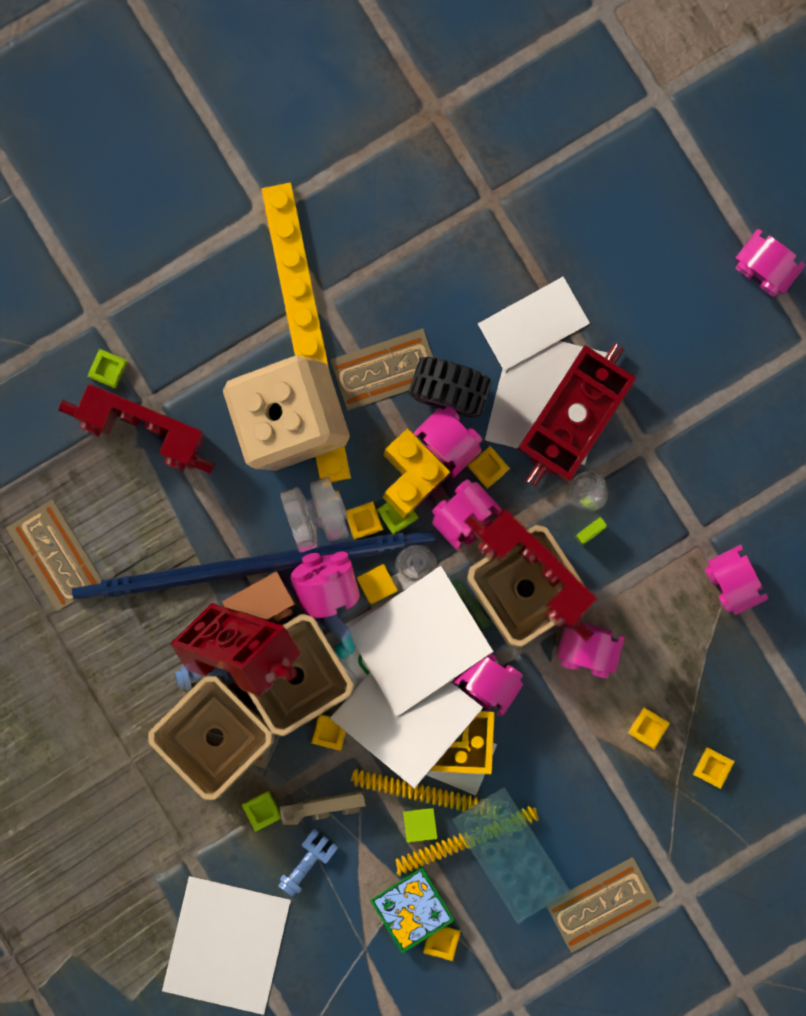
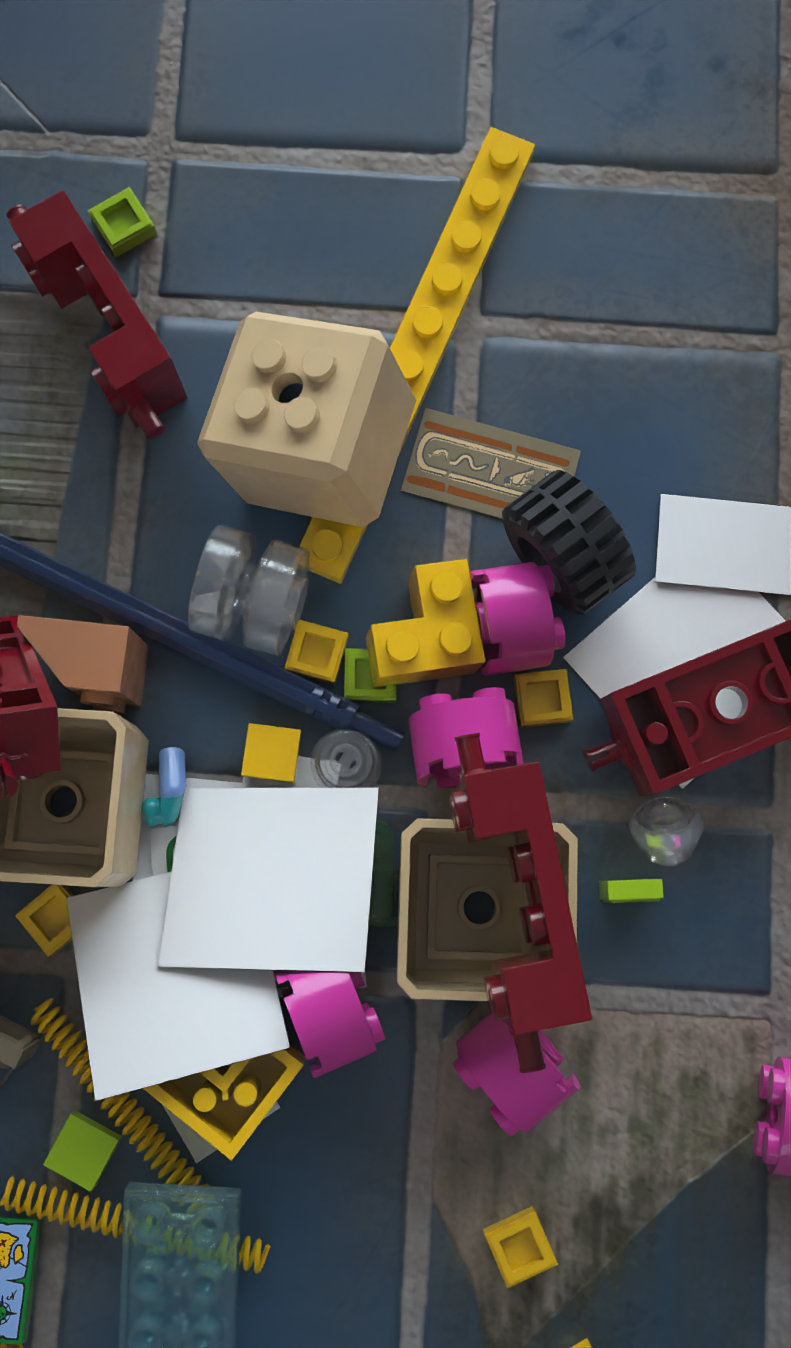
camera: 30 degrees right, 5 degrees down
(325, 584) = (191, 698): dark pink brick -> none

